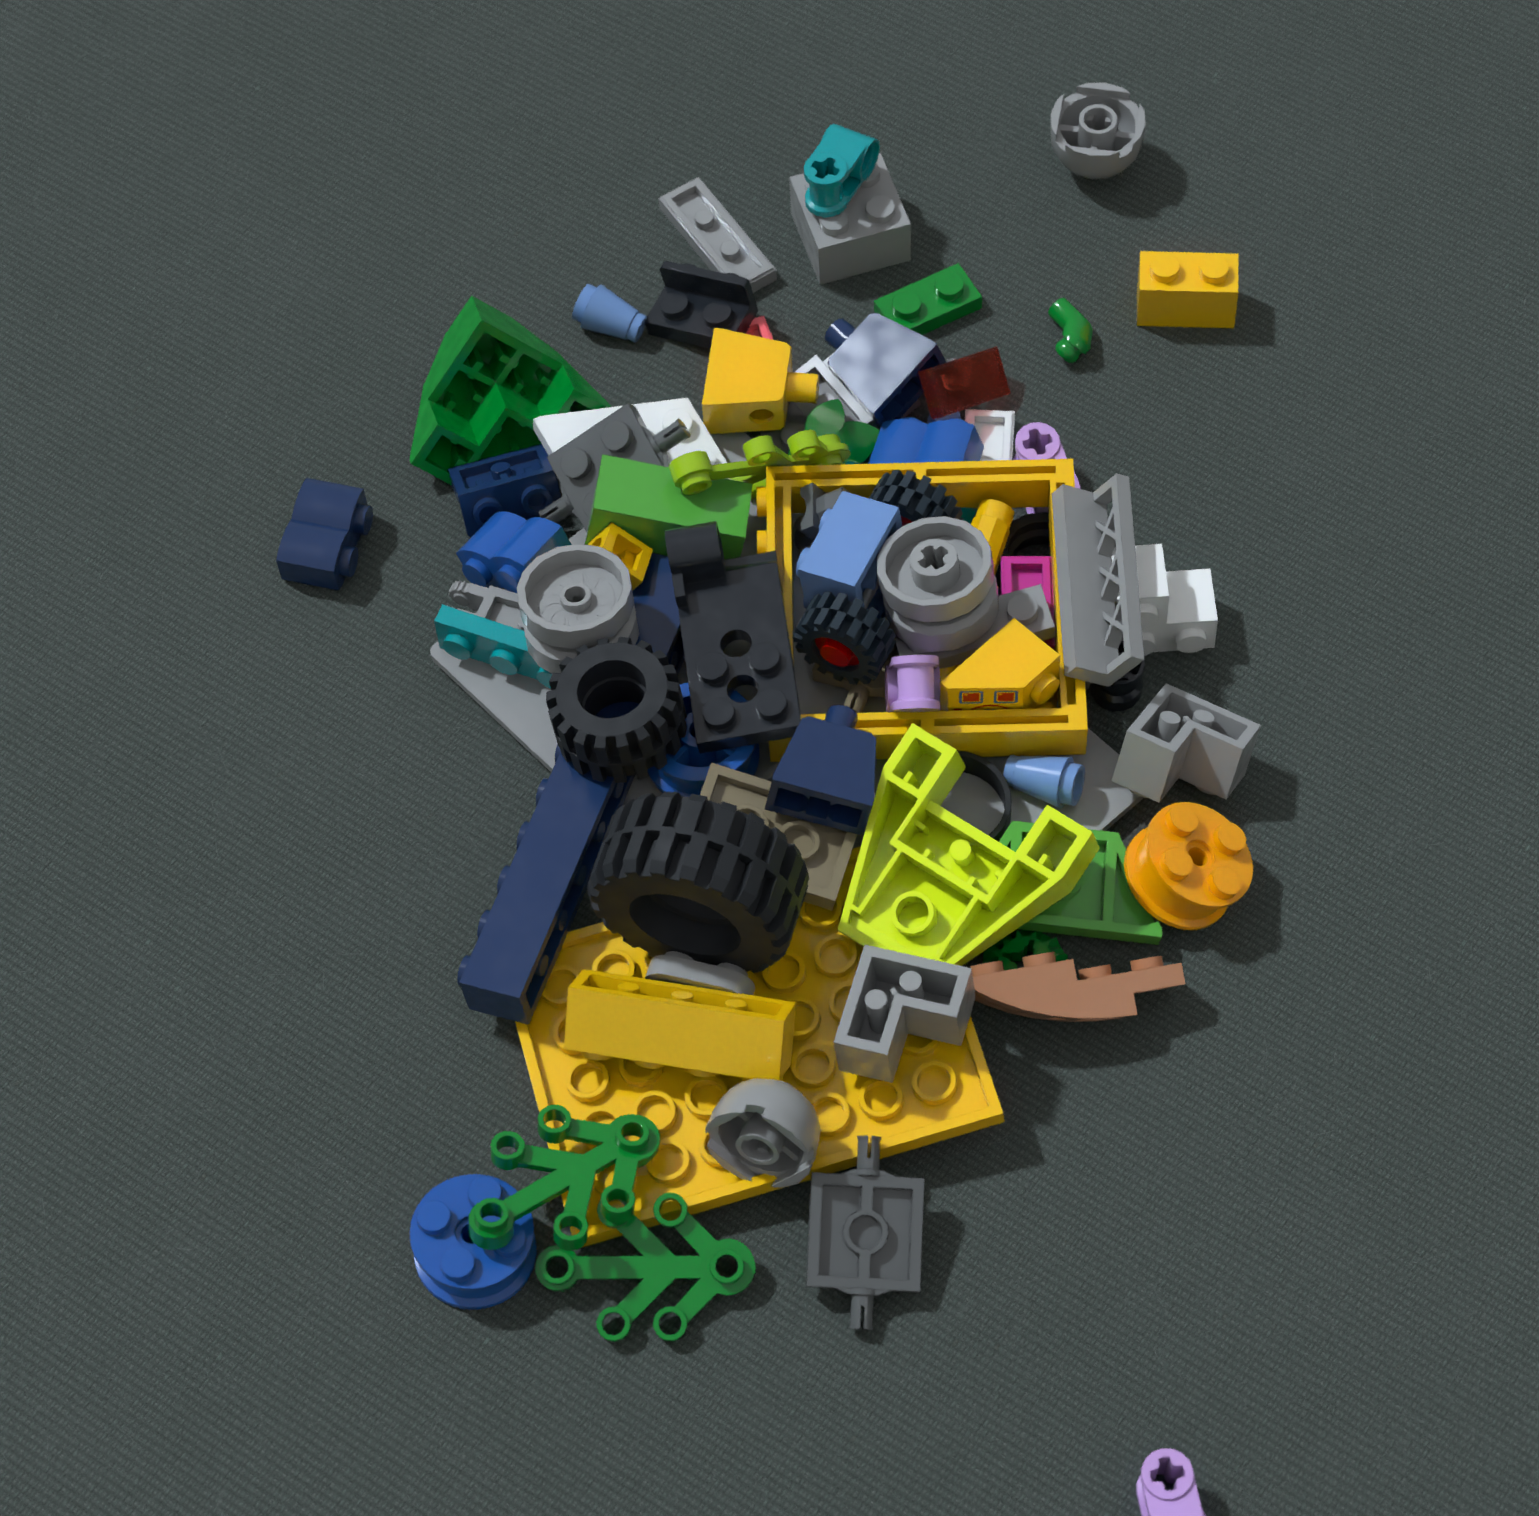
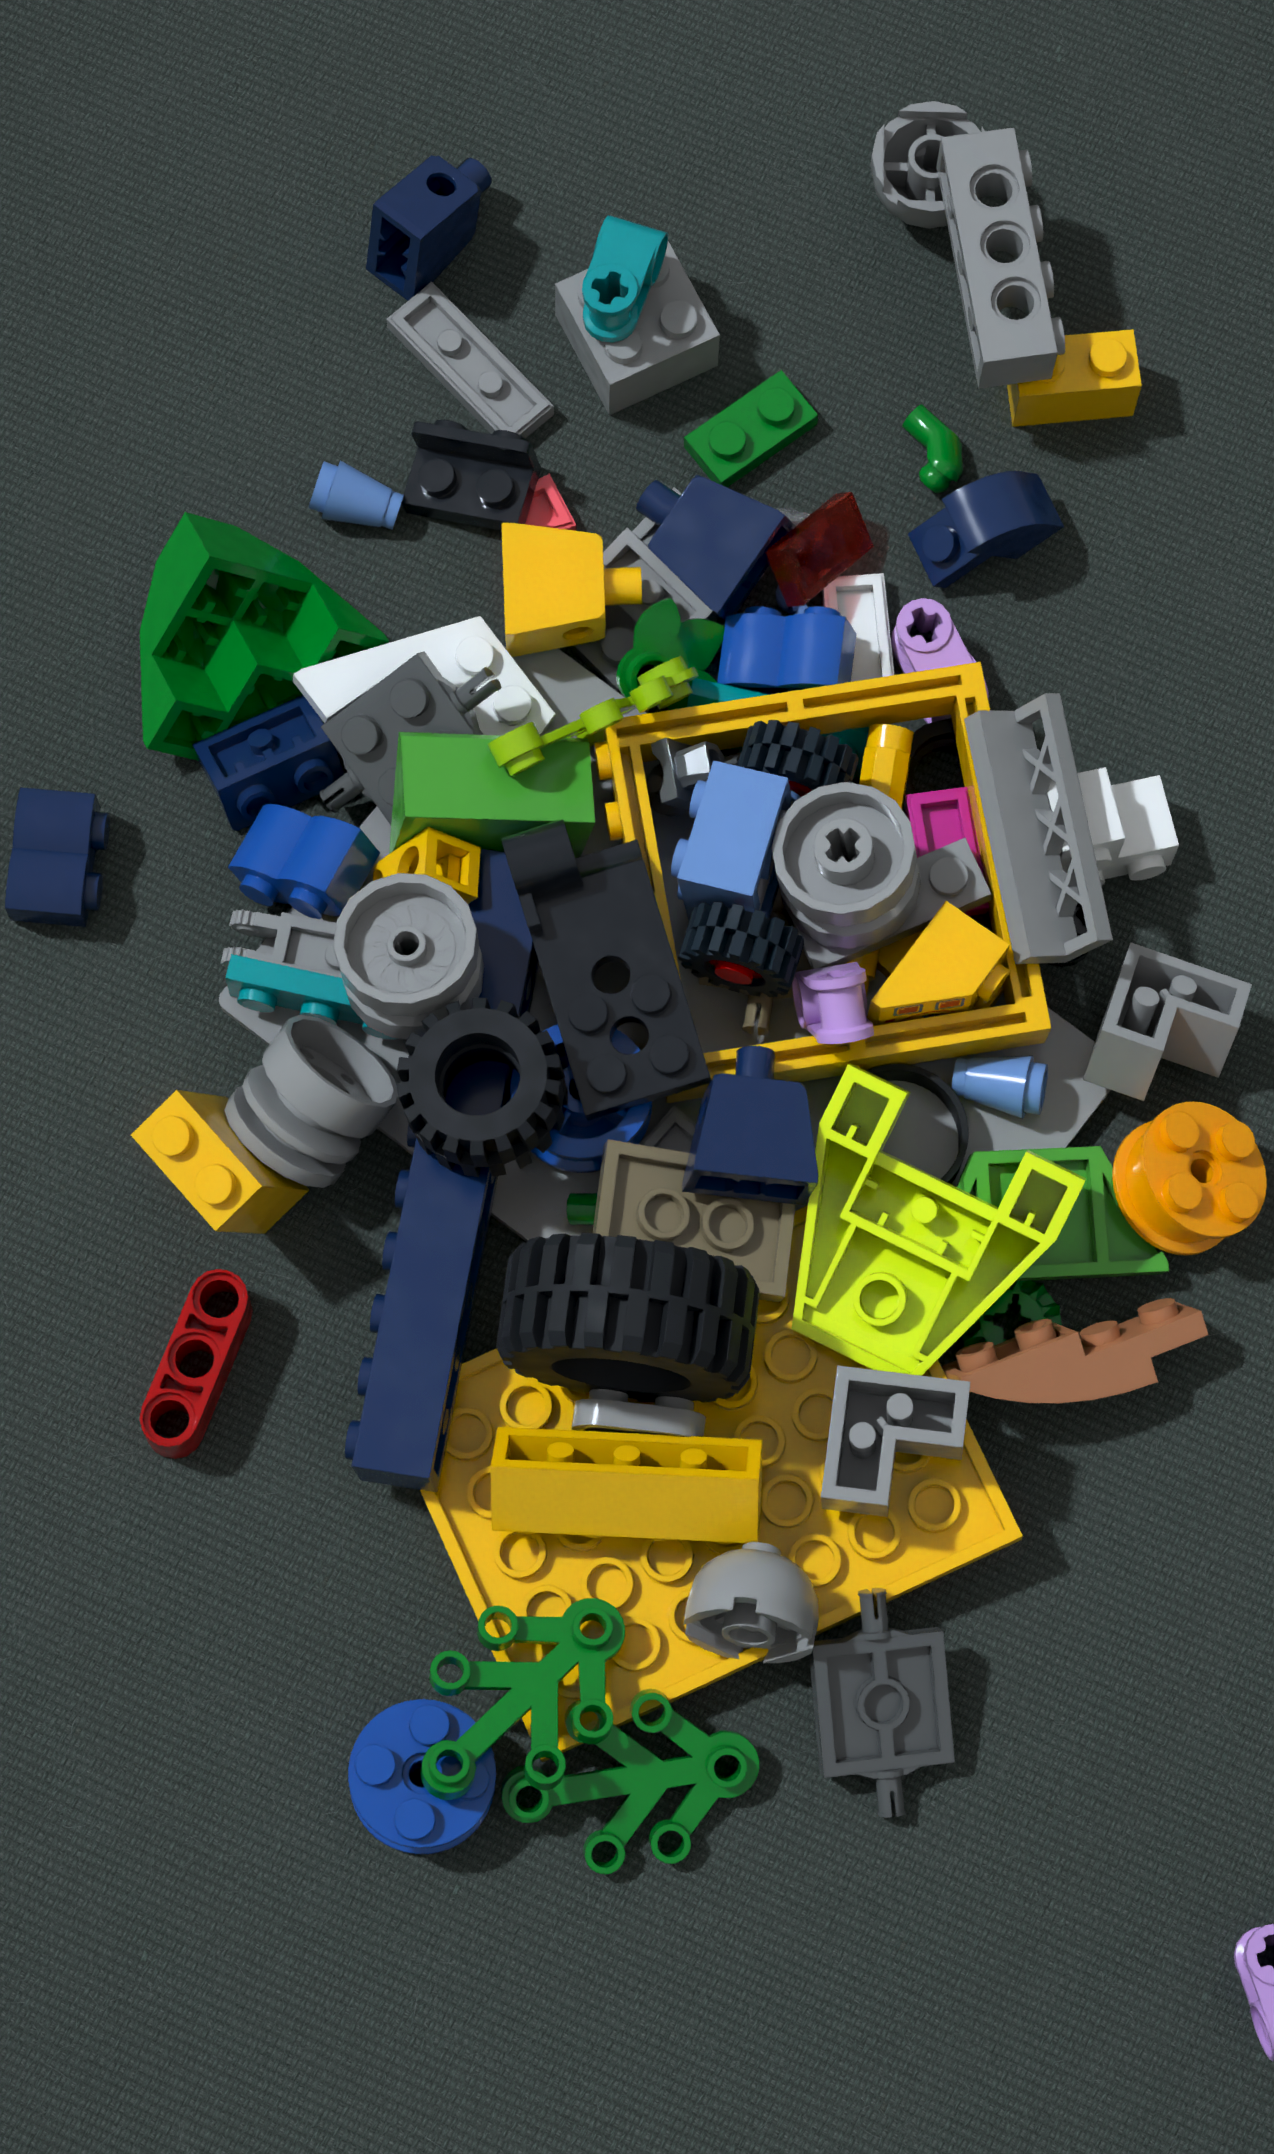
camera: 15 degrees left, 15 degrees up
(355, 930) = (192, 1333): none -> red beam
(402, 752) = (212, 1167): none -> yellow brick
(483, 717) = (311, 1101): none -> light grey wheel
(698, 132) = (425, 223): none -> dark blue torso
(1099, 374) = (985, 519): none -> dark blue brick
(1134, 186) = (1001, 347): none -> light grey brick

